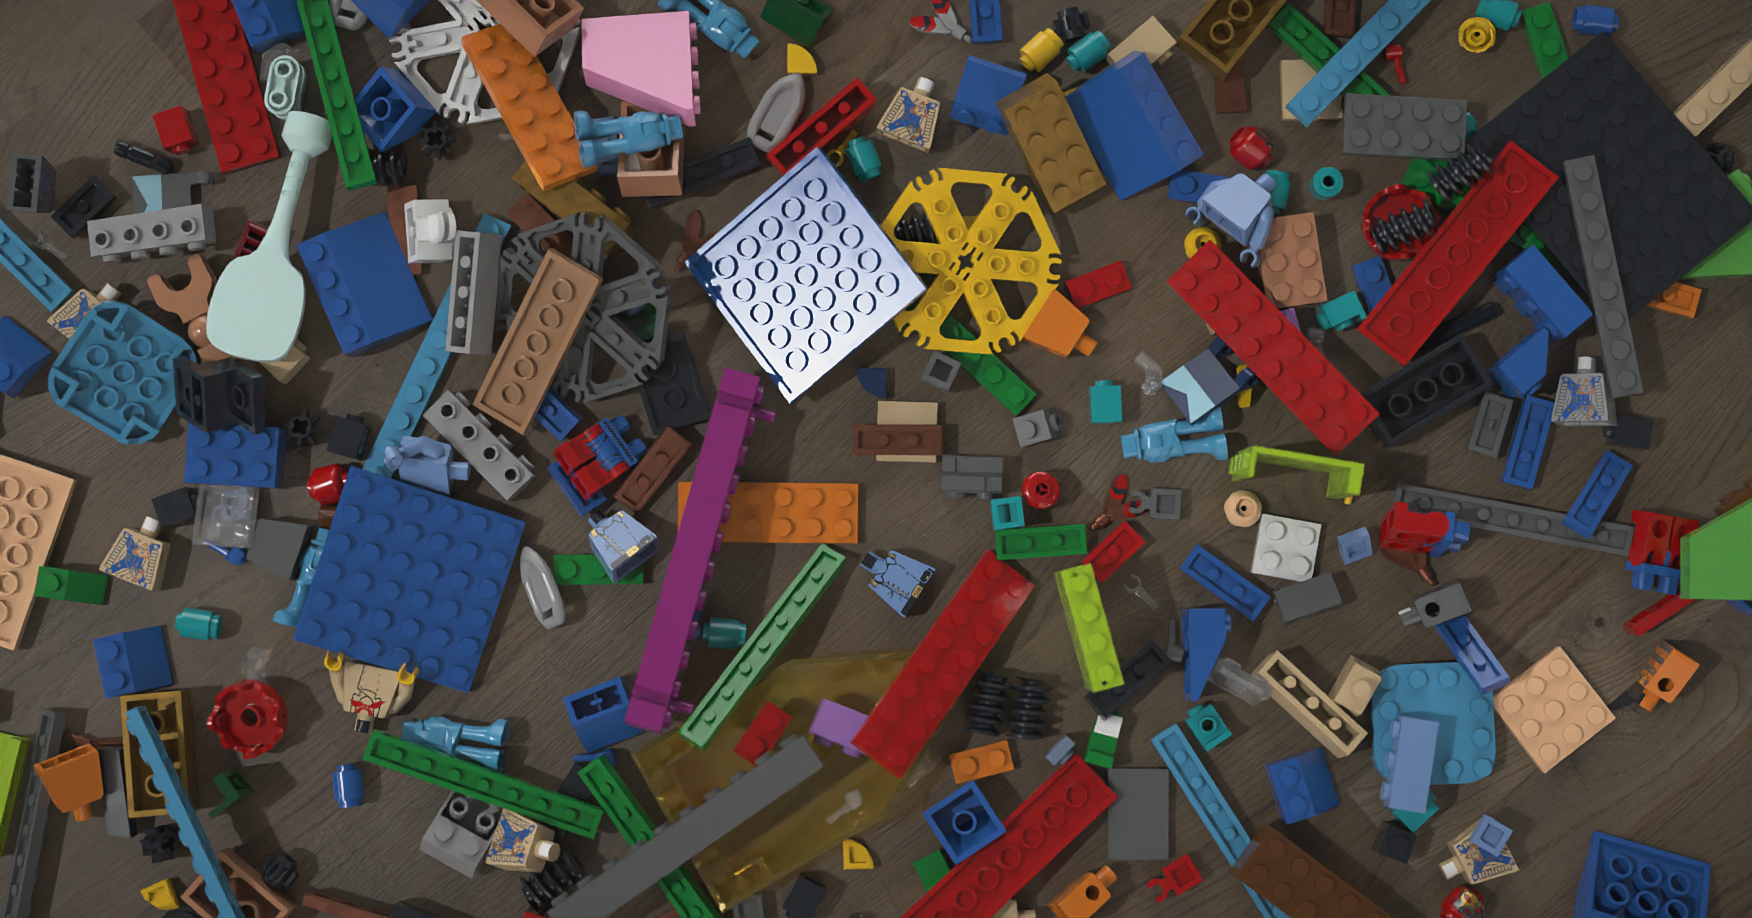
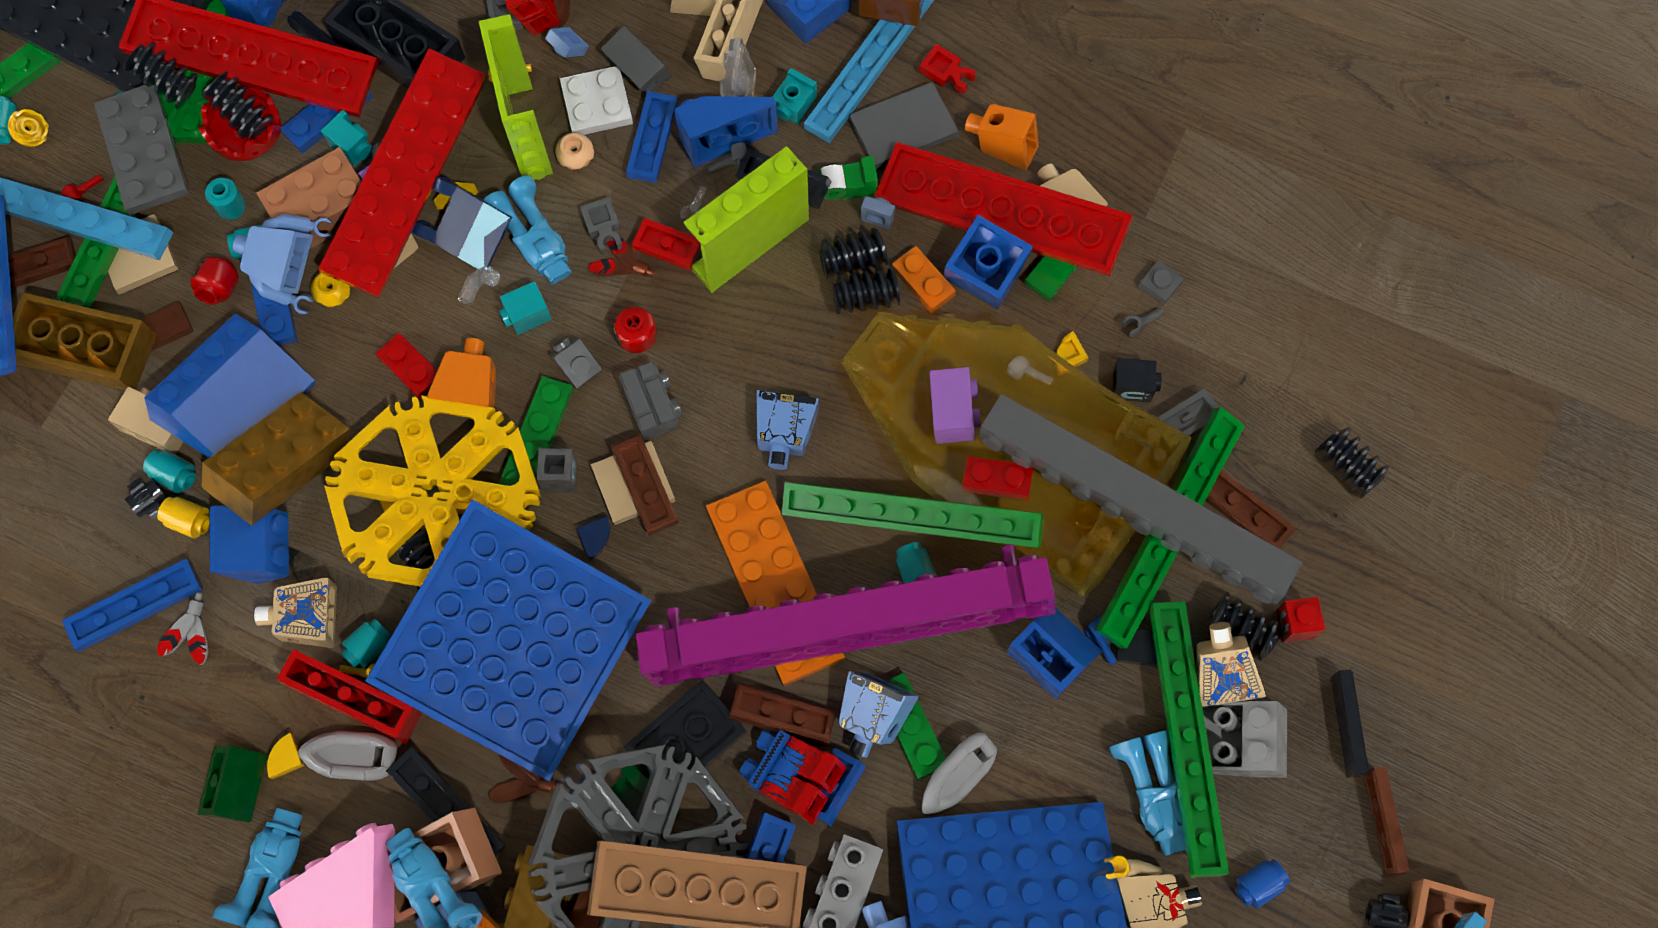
camera: 115 degrees left, 15 degrees down
(942, 664) = (848, 339): red plate -> none
(1006, 513) = (672, 349): teal brick -> none
(1040, 542) = (687, 312): green plate -> none

